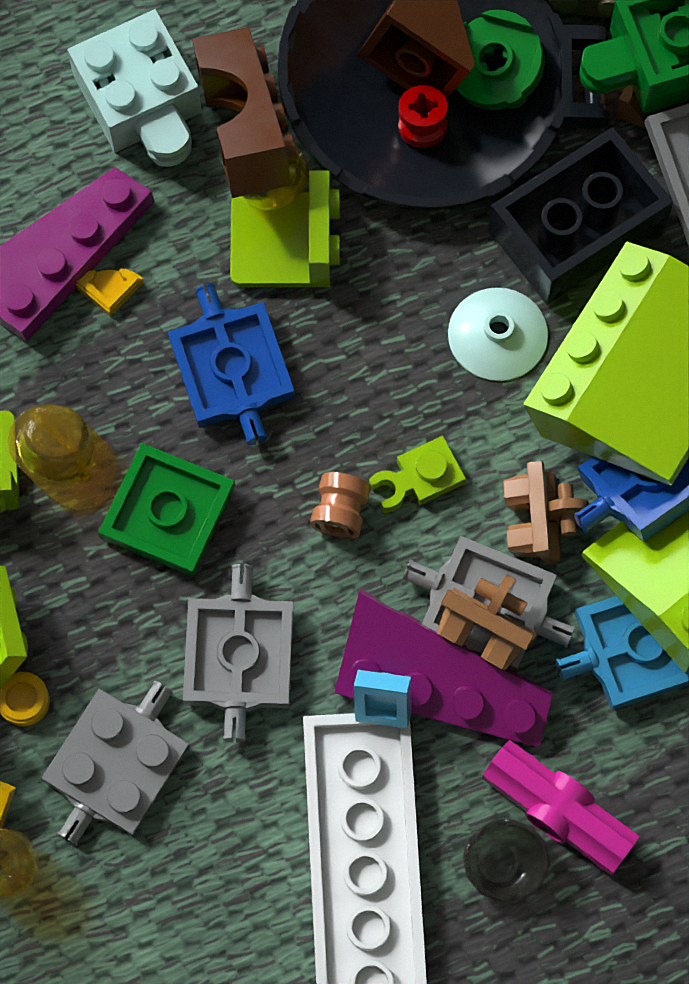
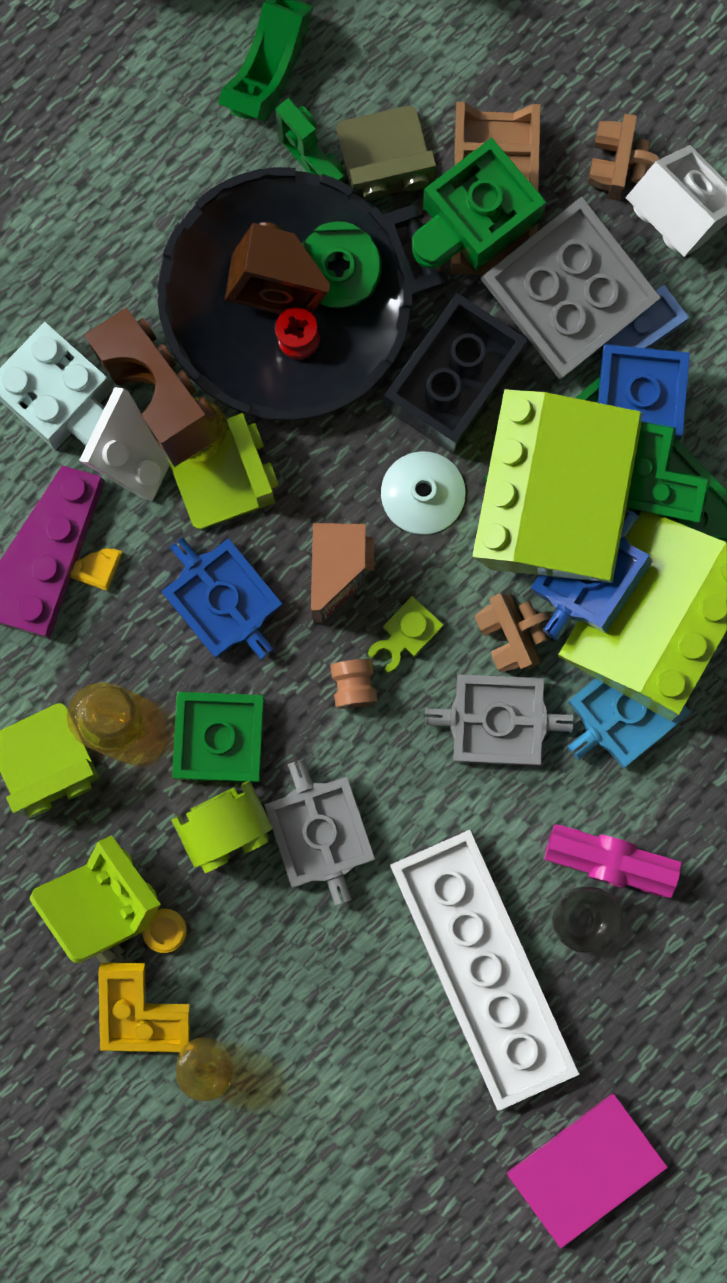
camera: 20 degrees left, 10 degrees up
(115, 762) = (257, 954): light grey plate -> none
(132, 600) = (223, 826): none -> lime brick
(189, 169) = (126, 448): none -> white wing
(370, 369) = (338, 565): none -> nougat slope
(382, 699) = (448, 831): medium azure plate -> none
(445, 677) = (468, 795): magenta wing -> none
(465, 611) = (526, 743): medium nougat hips -> none

